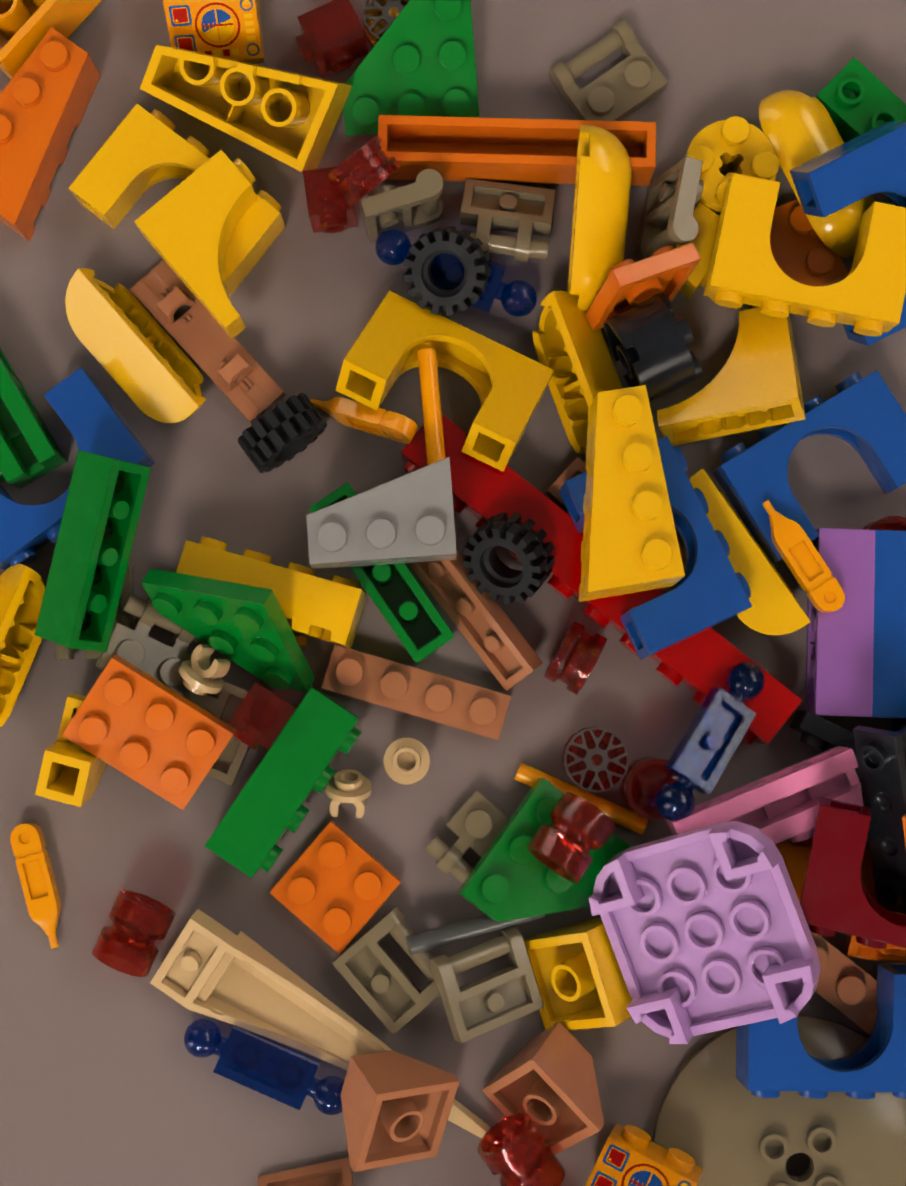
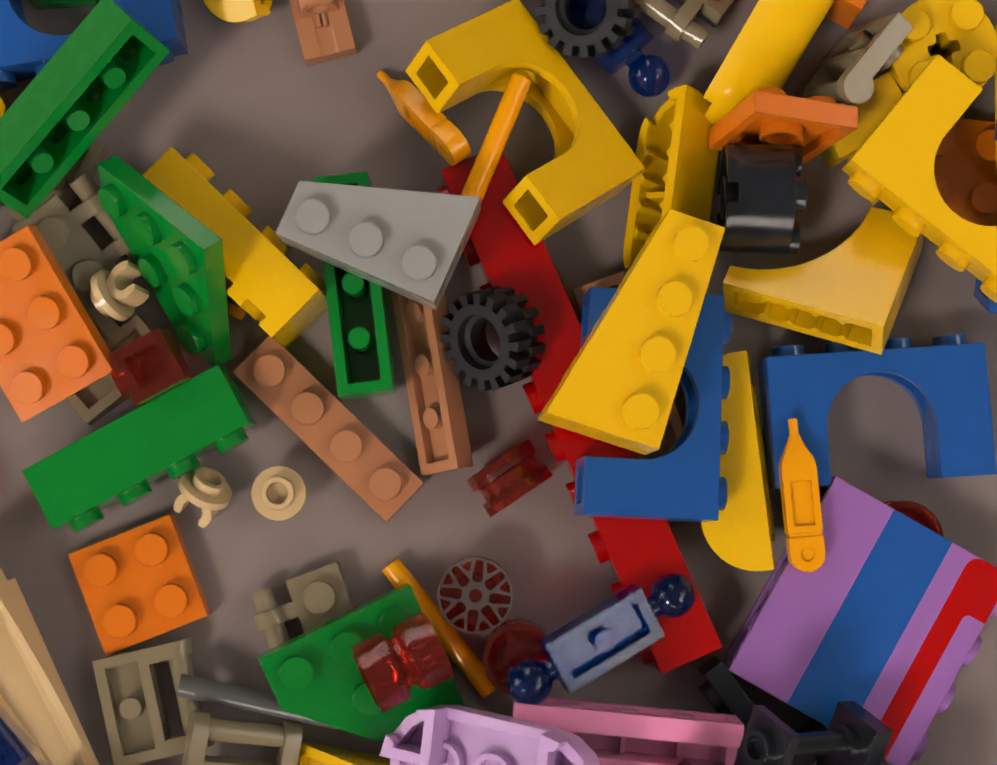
camera: 30 degrees right, 0 degrees up
(282, 433) = (328, 87): black tyre -> none

